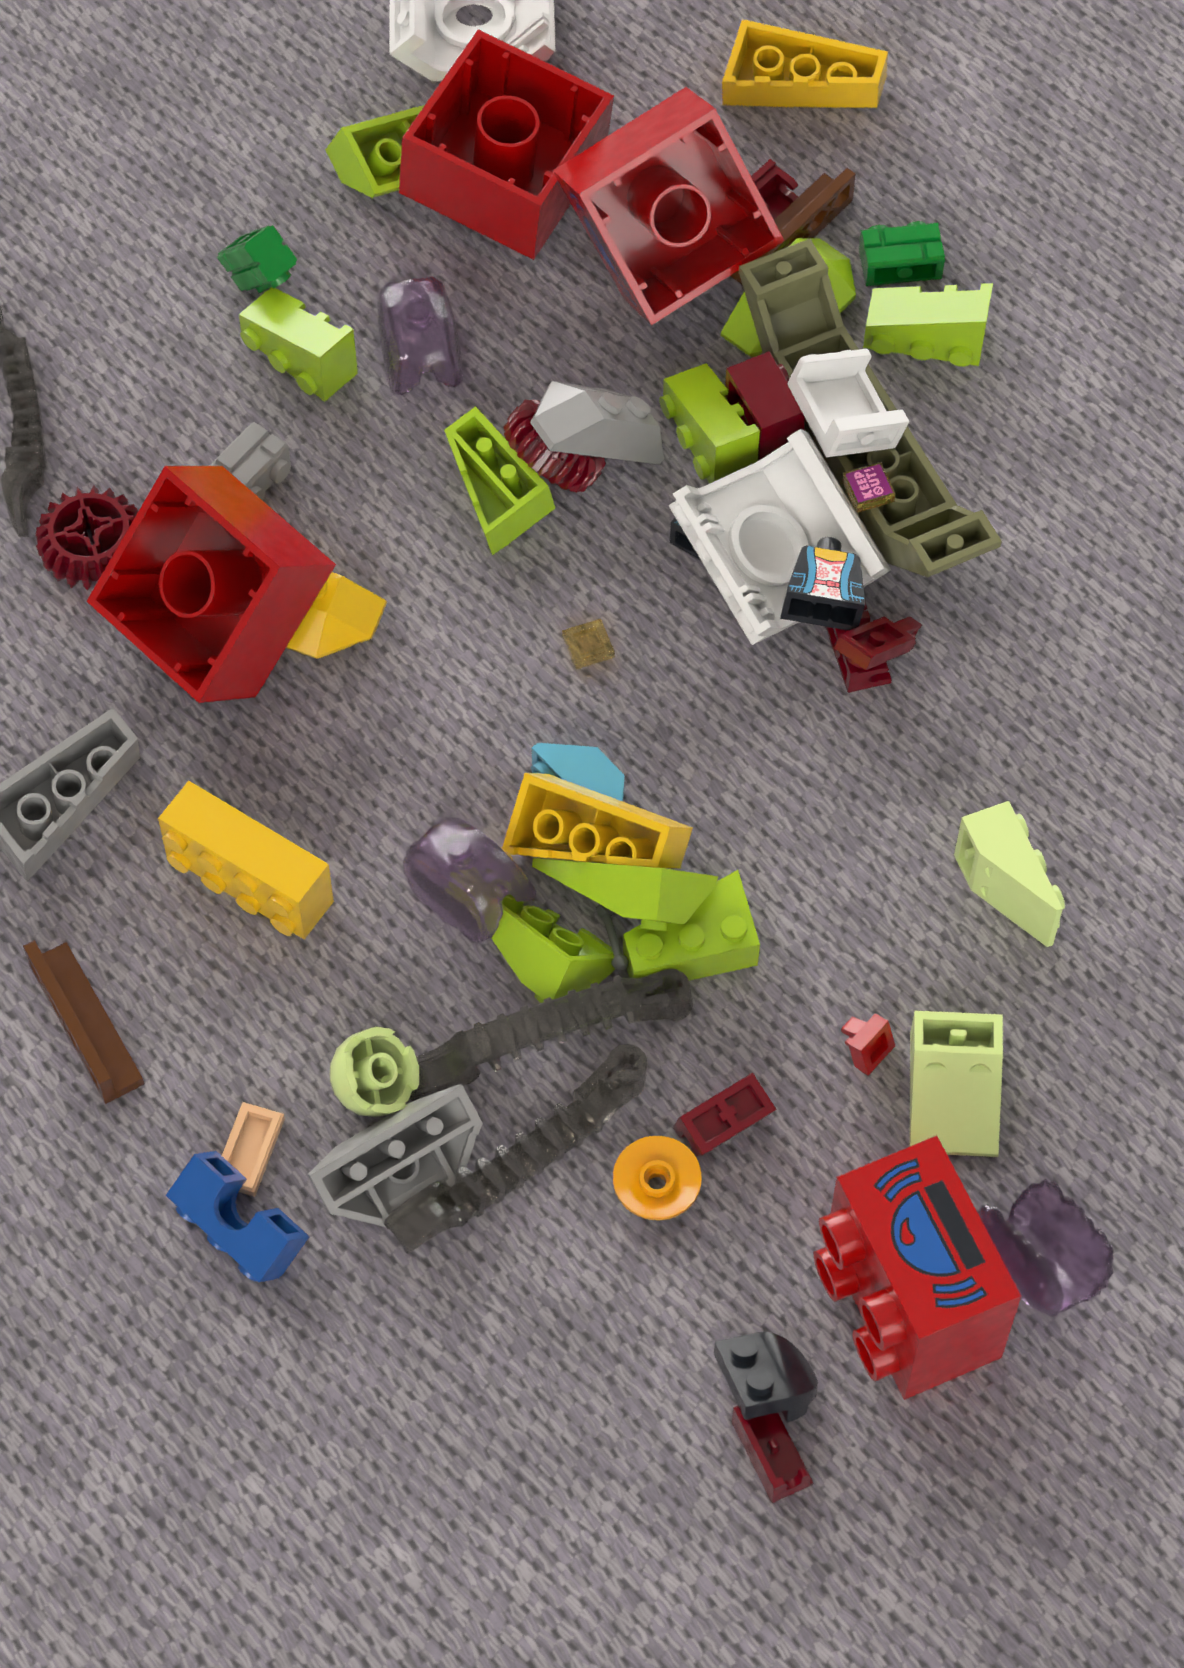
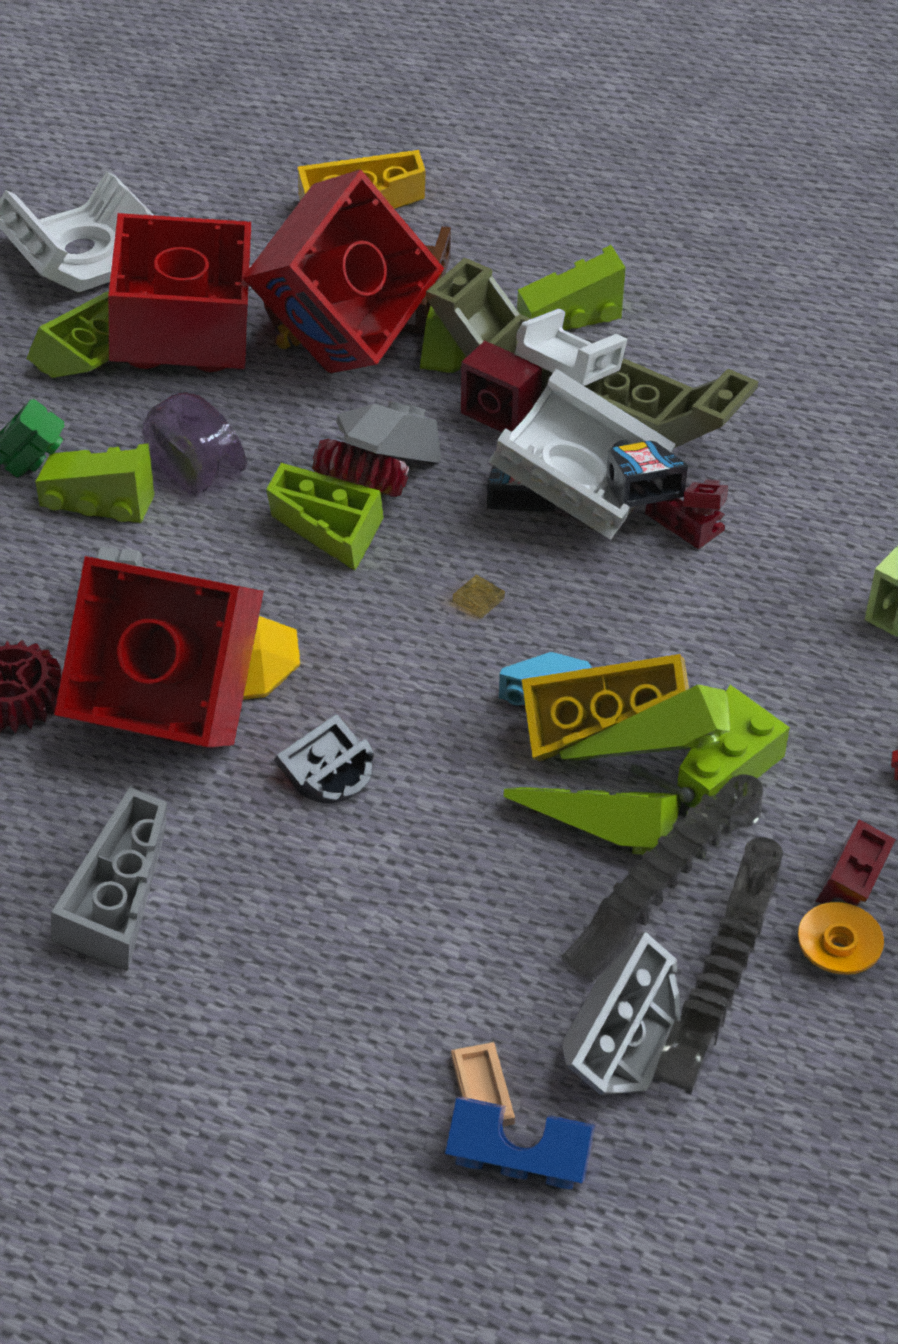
camera: 30 degrees left, 15 degrees down
(84, 1020) = (260, 1054): reddish brown fence -> none
(246, 861) = (324, 855): yellow brick -> none
(322, 761) = (328, 763): none -> slope
(374, 1072) = (553, 967): yellowish green cylinder -> none
(464, 877) = (520, 786): animal -> none
(709, 423) = (468, 415): lime wedge -> none
(868, 487) = (626, 395): tile -> none
(901, 253) = (519, 265): green brick -> none

